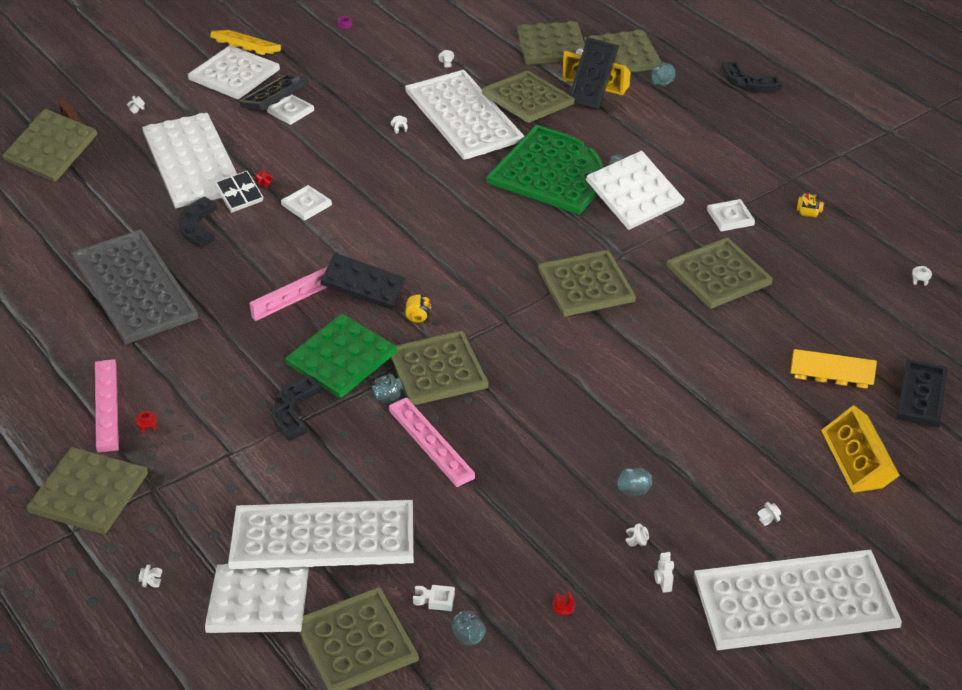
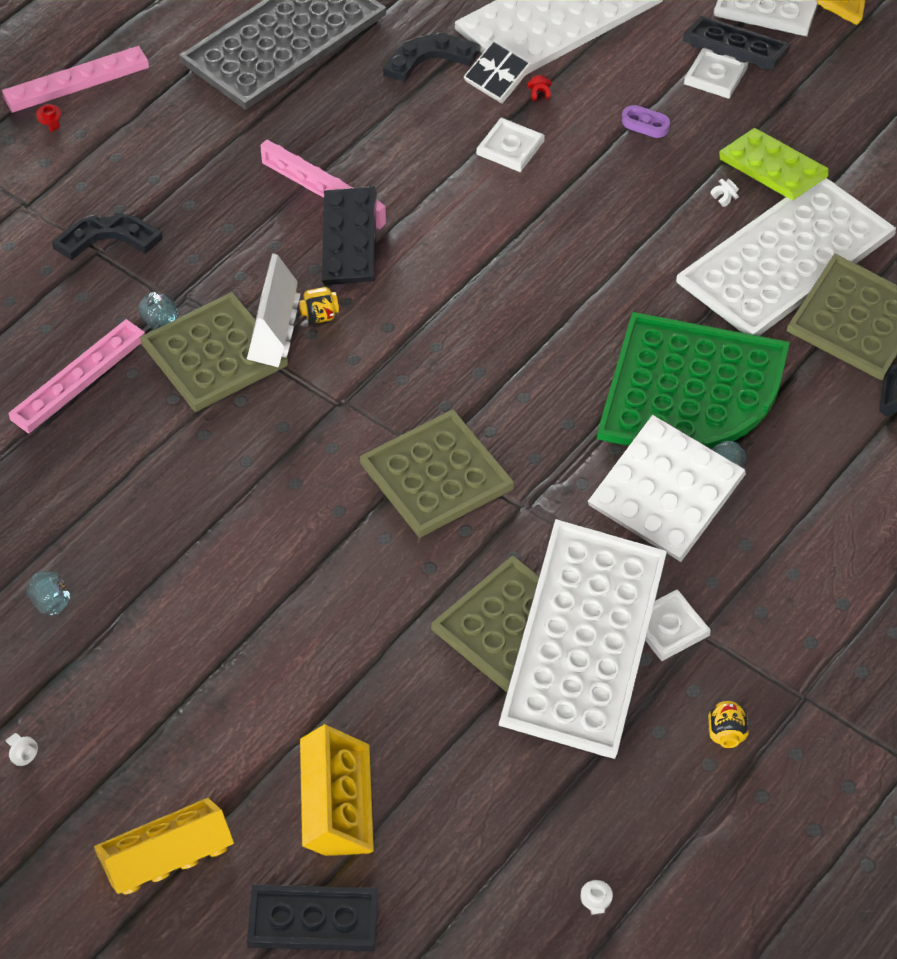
camera: 75 degrees right, 10 degrees up
(320, 142) = (645, 121): none -> medium lavender plate
(341, 355) = (207, 253): green plate -> none
(387, 101) = (774, 164): none -> lime plate
(428, 321) = (275, 315): none -> white slope
(742, 240) = (583, 639): none -> white plate

